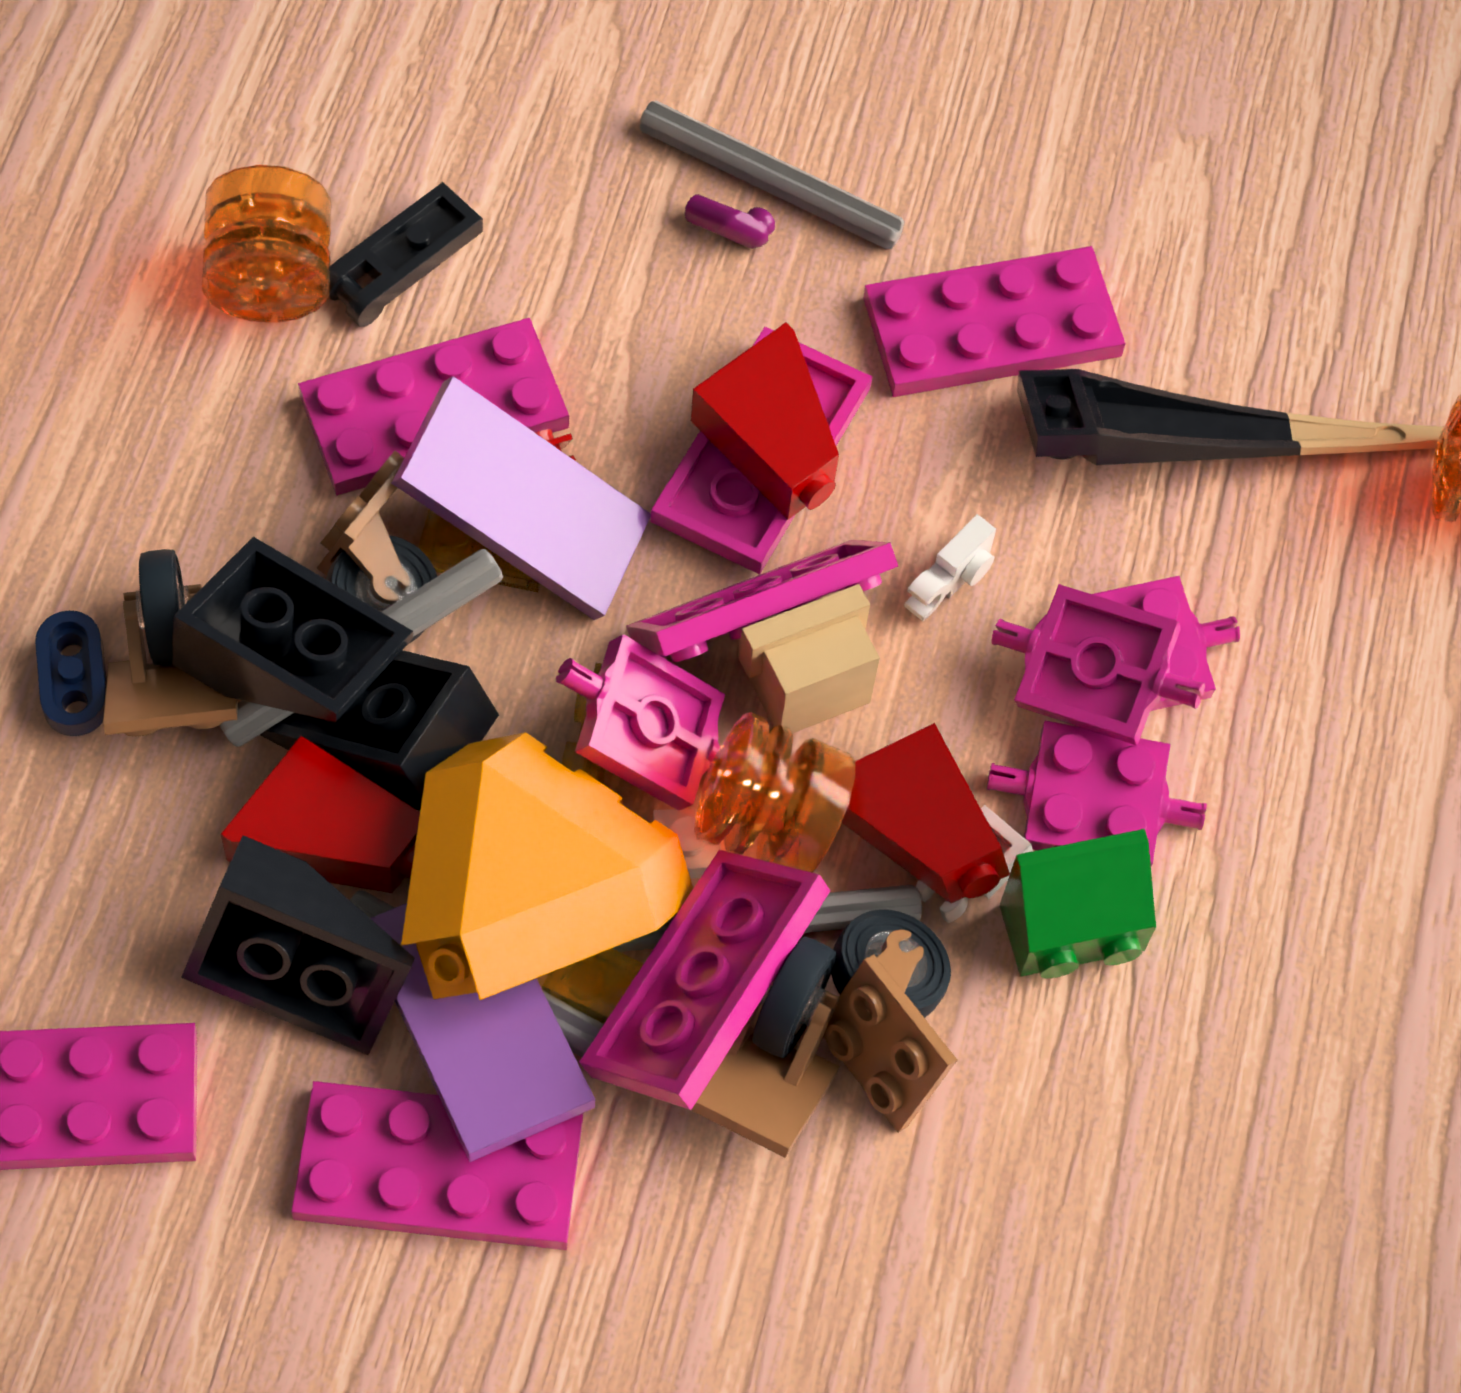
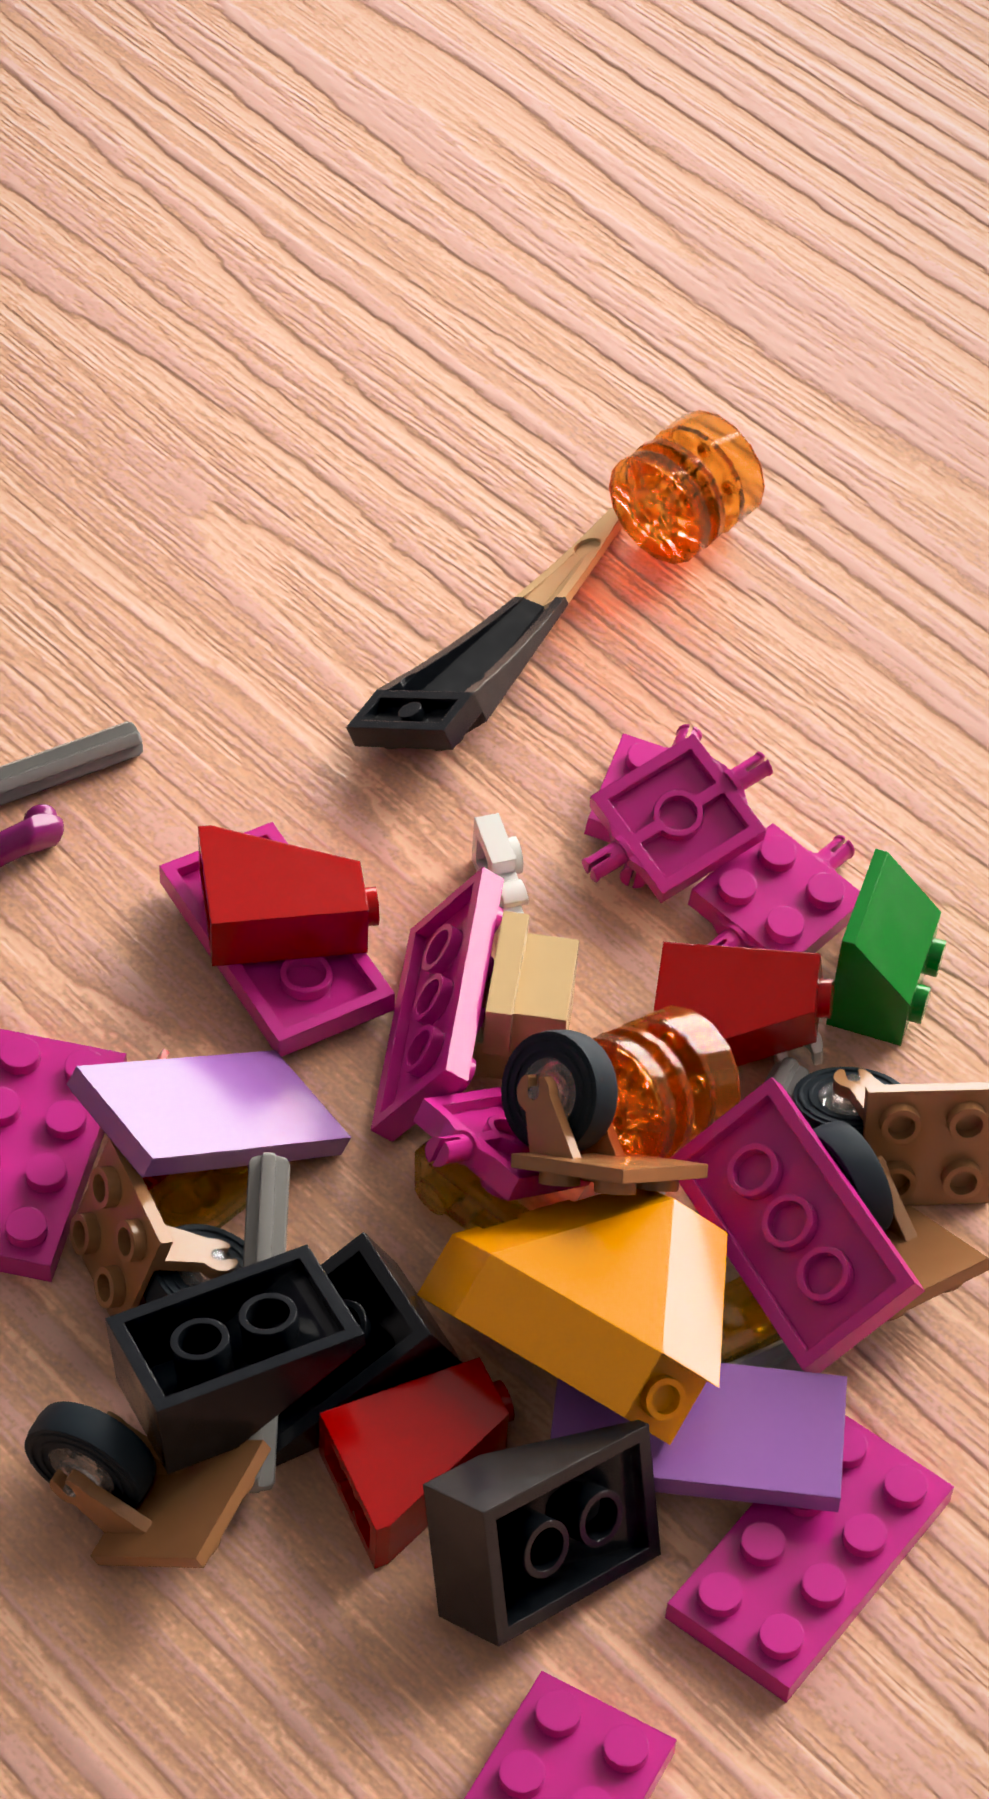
camera: 55 degrees left, 15 degrees down
(71, 677) = (90, 1585): dark blue plate -> none
(651, 774) = (562, 1106): none -> plate
(993, 321) = (273, 725): dark pink plate -> none

